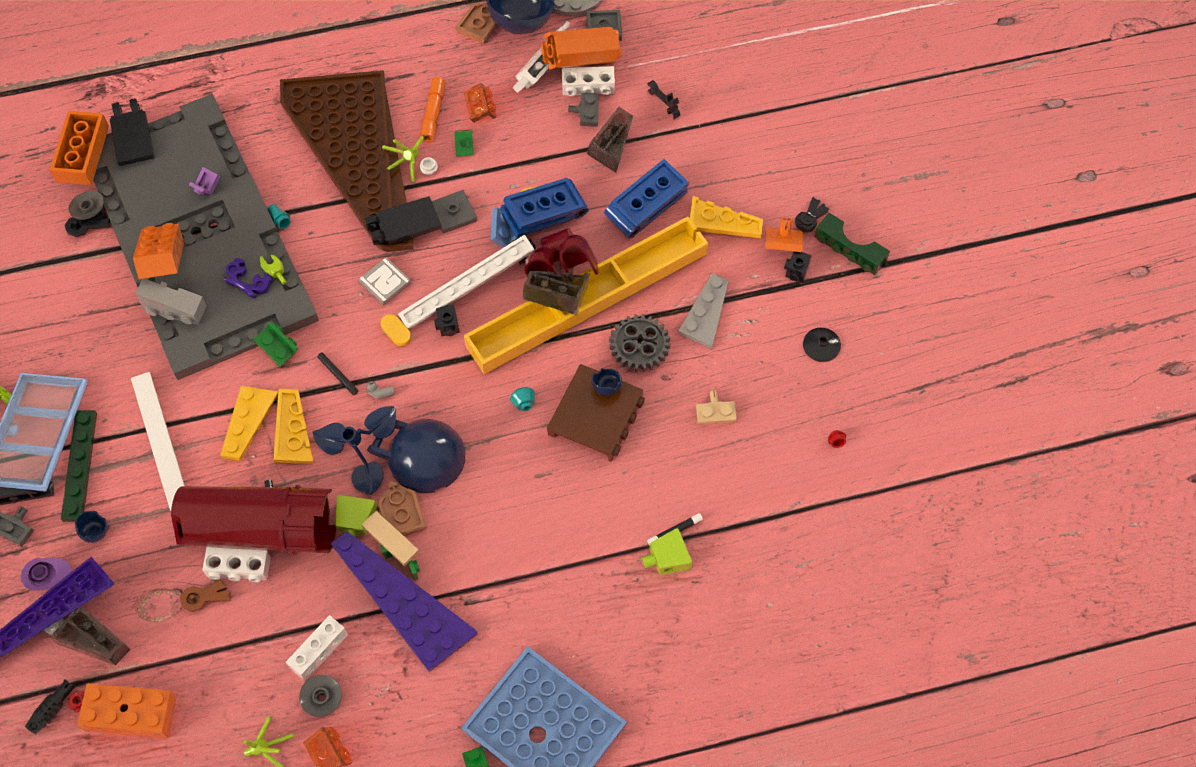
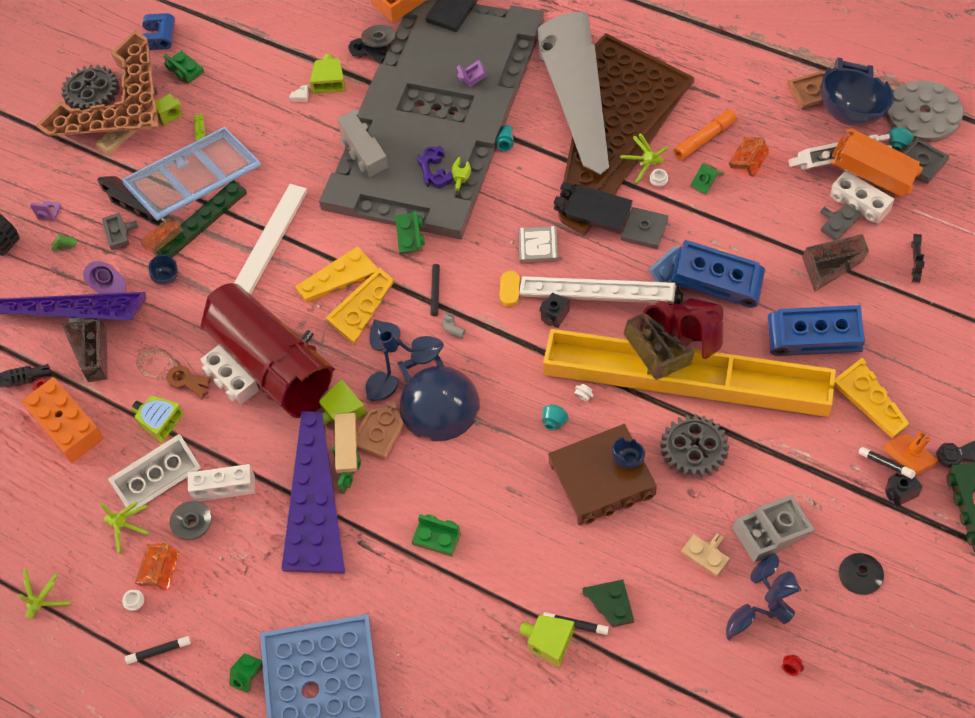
camera: 50 degrees right, 5 degrees down
(60, 500) = (161, 235): none -> clear orange bracket
(62, 300) = (300, 95): none -> white tile
(74, 267) = (327, 75): none -> lime torso
(158, 251) = (384, 99): orange brick -> none
(208, 643) = (157, 416): none -> torso
(254, 687) = (154, 472): none -> white slope
(279, 120) = (572, 66): none -> light grey panel
(519, 550) = (436, 534): none -> green bracket
(526, 365) = (583, 392): none -> white plate
(575, 18) = (900, 138): none -> teal cone
(684, 495) = (611, 601): none -> dark green wing
(705, 314) = (776, 466): light grey wing -> none
(742, 359) = (772, 528): none -> light grey slope
(774, 256) = (887, 462): none -> black bar
(799, 389) = (782, 587): none -> dark blue plant

